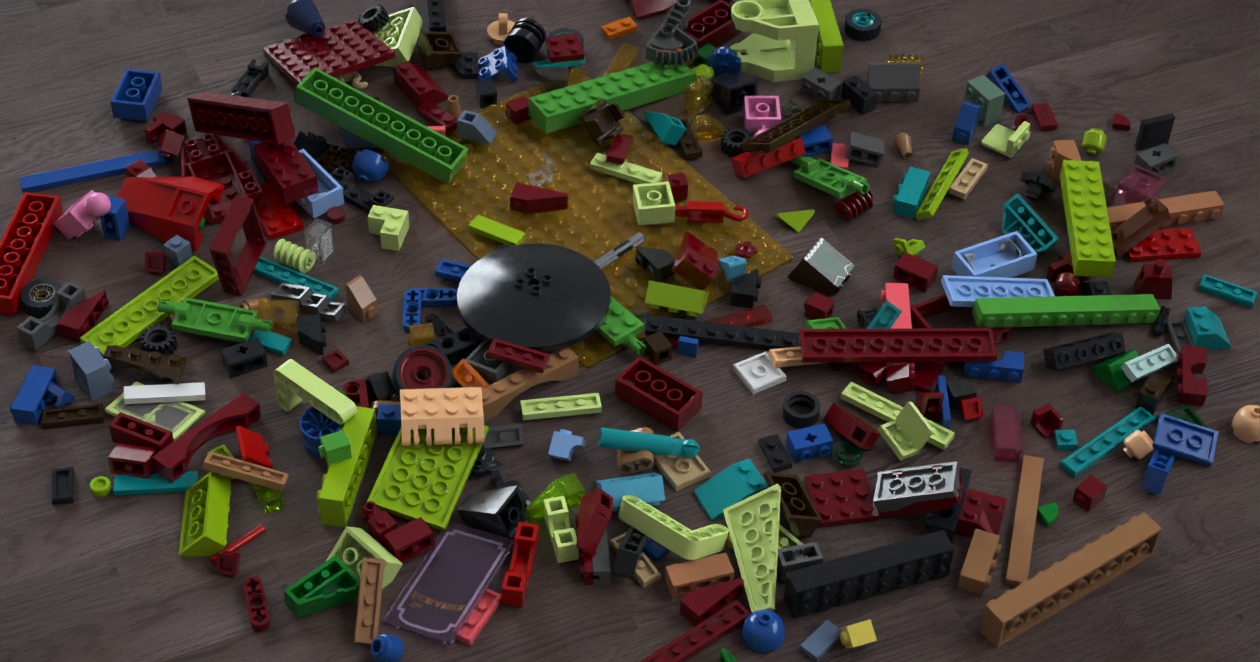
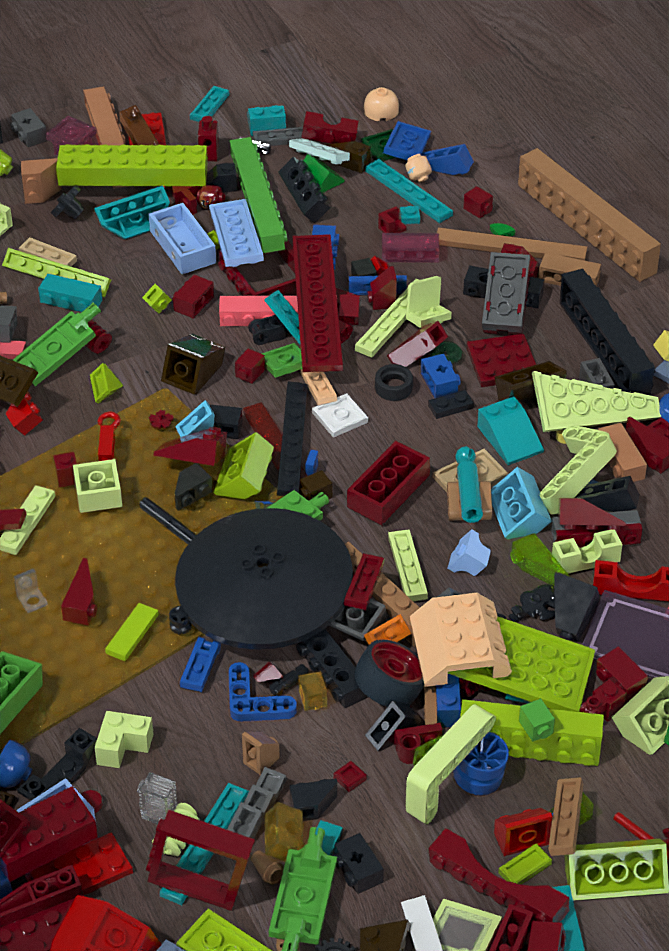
camera: 90 degrees left, 0 degrees up
(444, 312) = (267, 672): none -> slope

